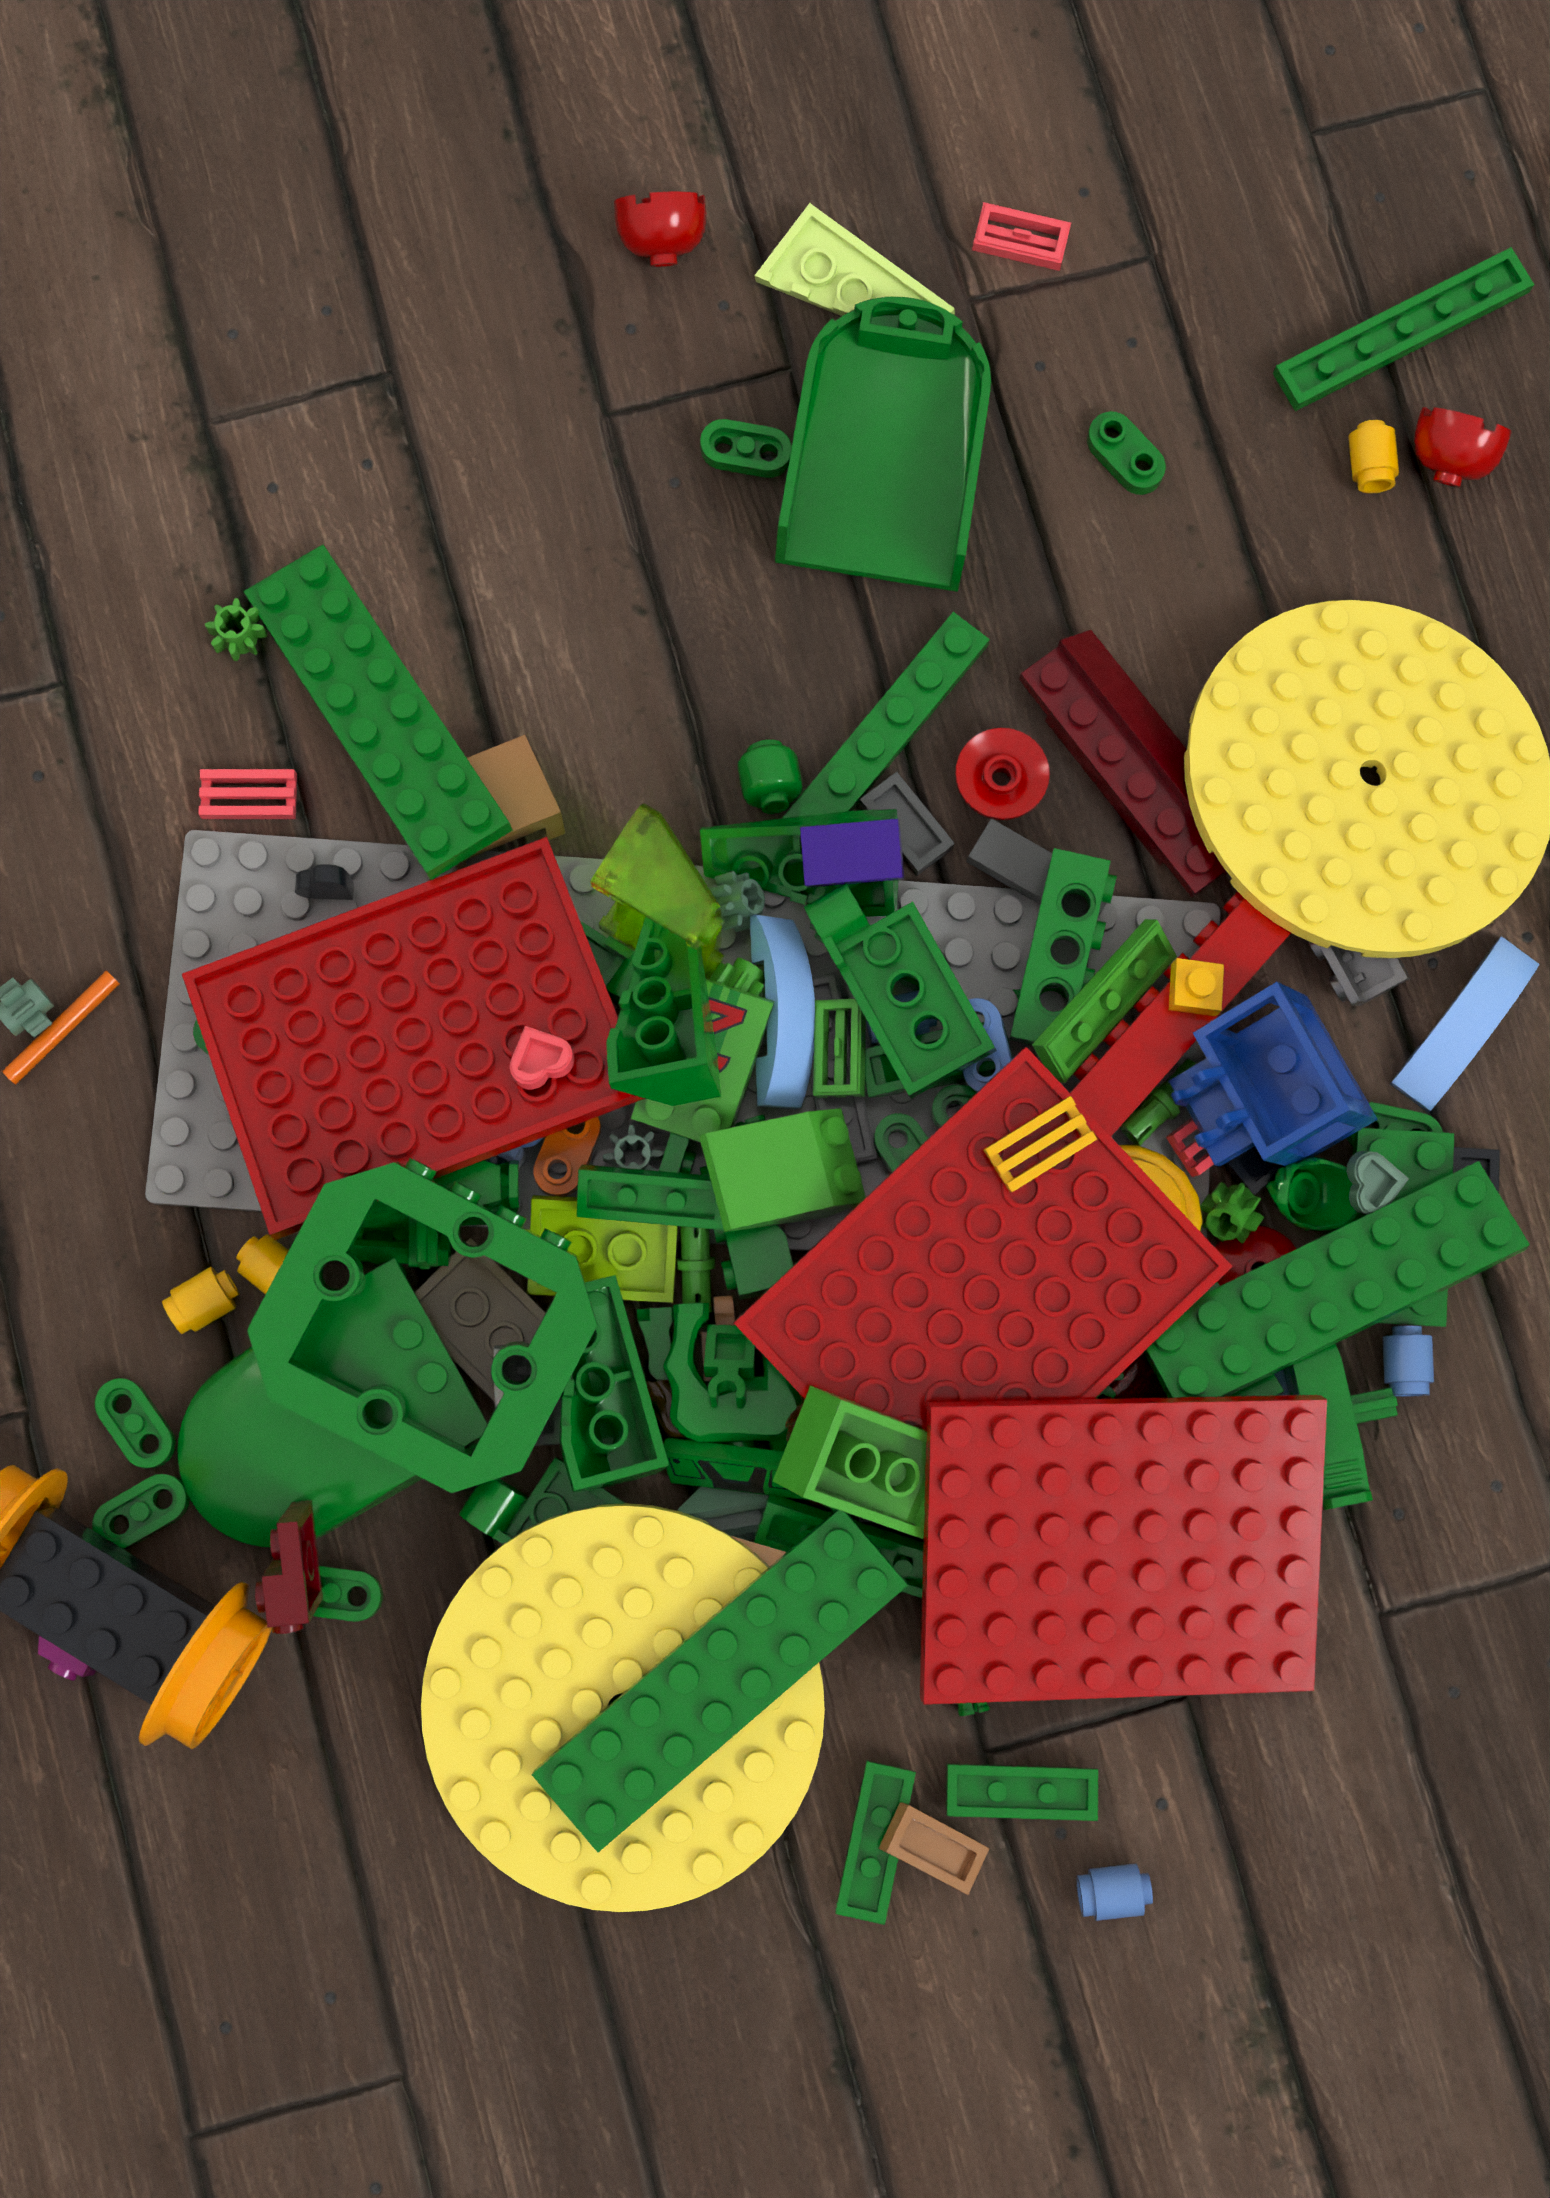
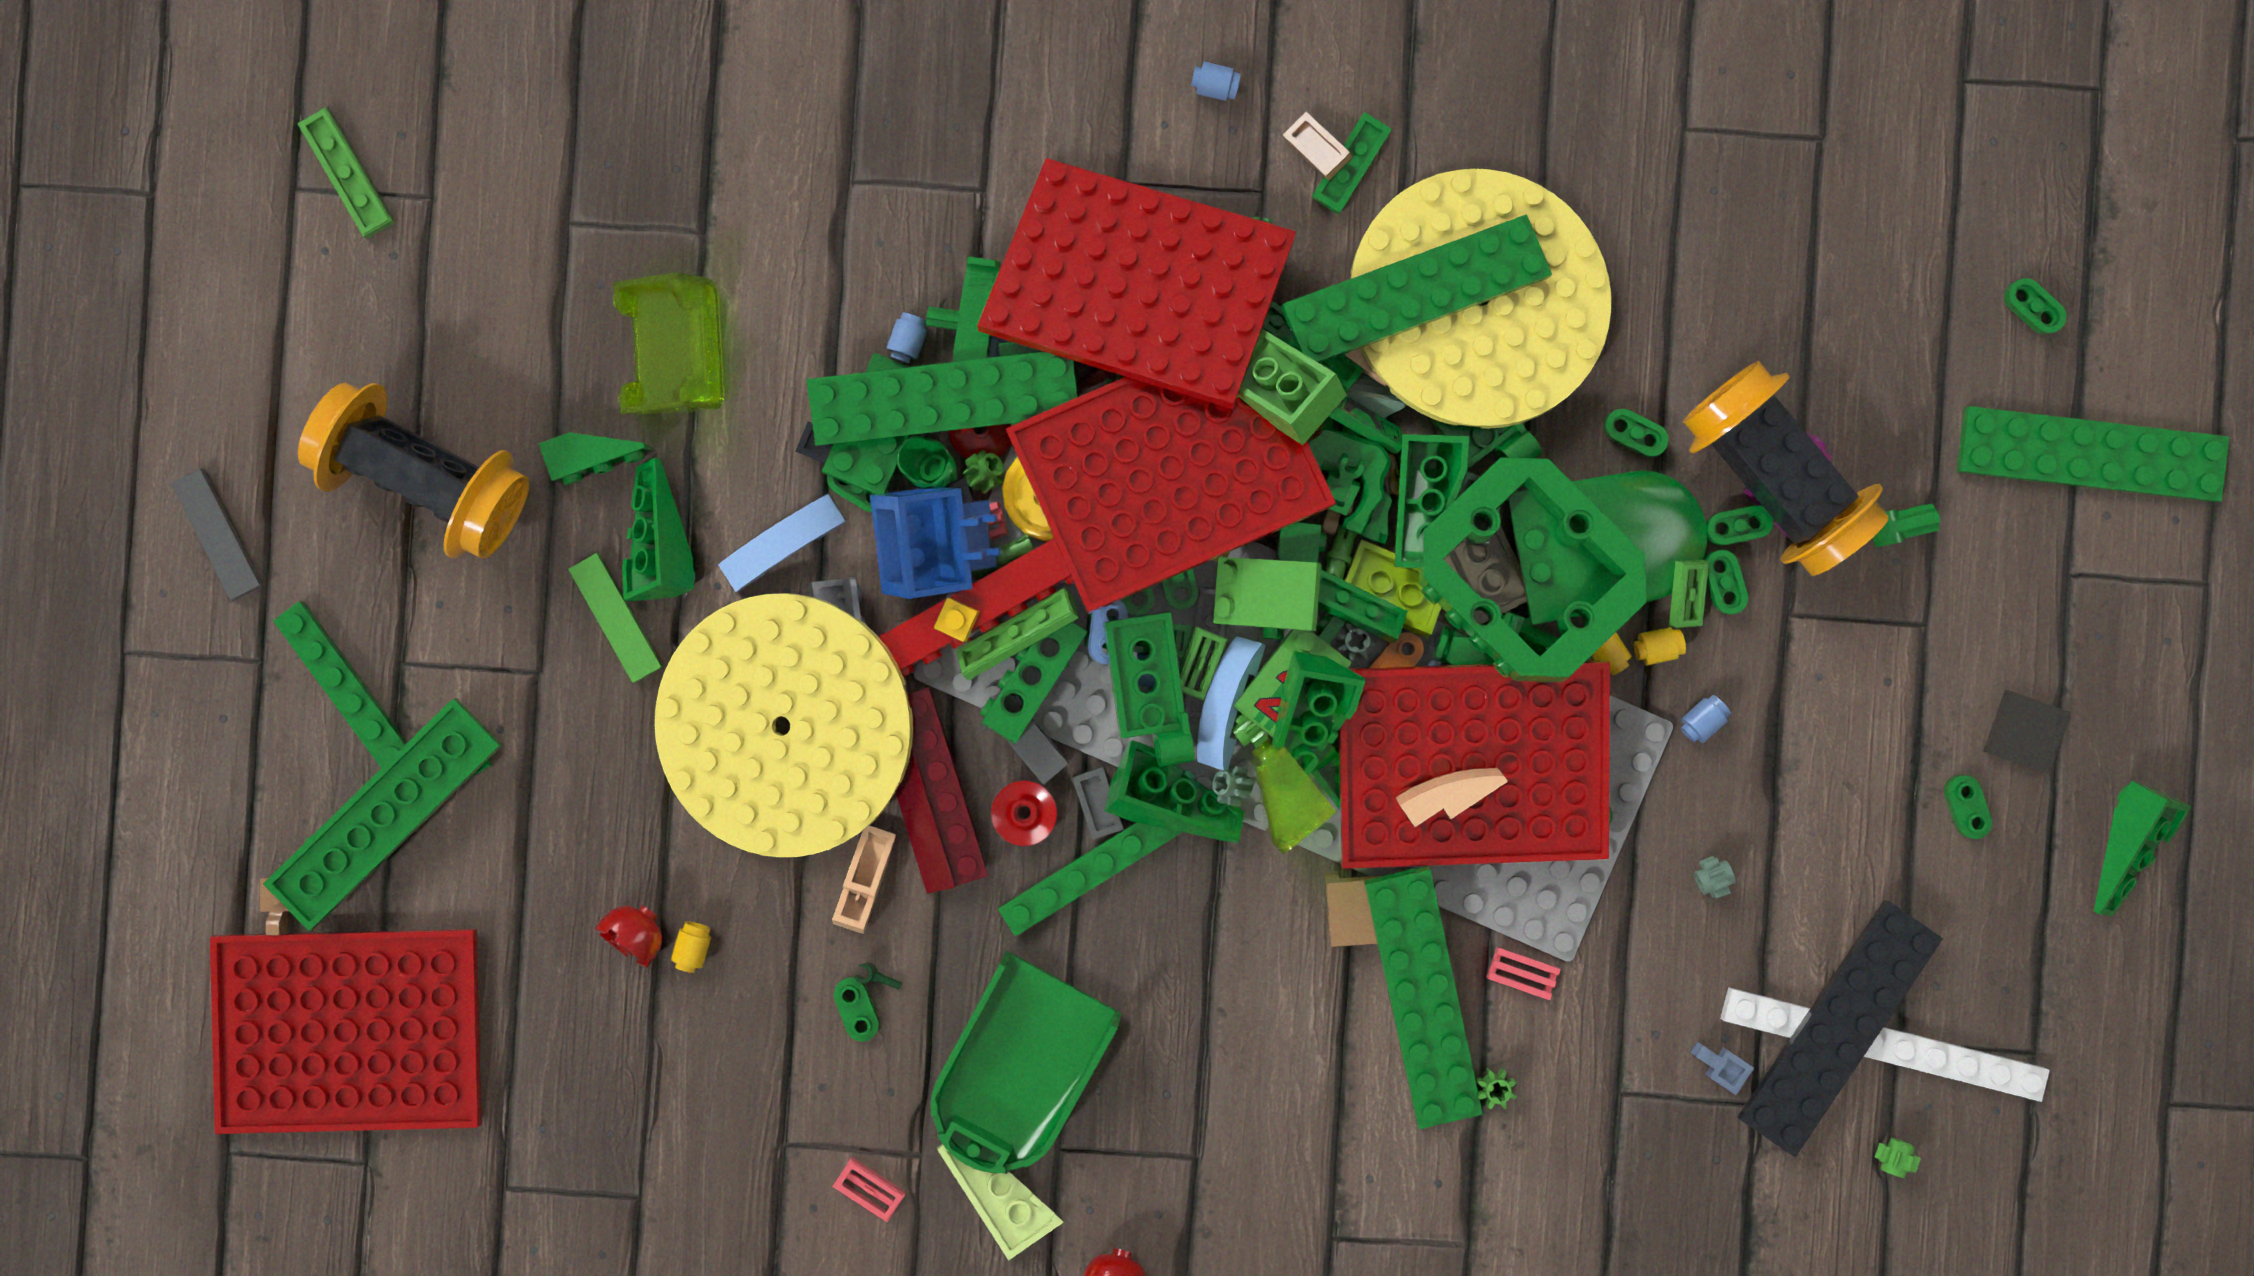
camera: 160 degrees left, 10 degrees up
(60, 1027) = (1693, 857): orange bar -> none
(104, 1220) = (1705, 719): none -> medium blue brick
(189, 1384) = (1684, 593): none -> bright green tile
(292, 1581) = (1659, 445): dark red plate -> none
(325, 882) = (1494, 891): black tile -> none
(436, 978) = (1451, 791): none -> light nougat slope
(540, 1058) = (1400, 717): coral tile -> none
(747, 445) = (1111, 1100): green plate -> none
(769, 776) = (1178, 864): green head -> none
(852, 853) = (1149, 784): dark purple panel -> none
(1021, 1792) = (1250, 161): green plate -> none
(1076, 1122) = (1098, 533): yellow tile -> none
(1119, 502) = (876, 976): none -> dark green hand
(1181, 617) = (864, 879): none -> light nougat slope
(1373, 1181) = (888, 456): sand green tile -> none
(1403, 329) = (634, 1031): green plate -> none

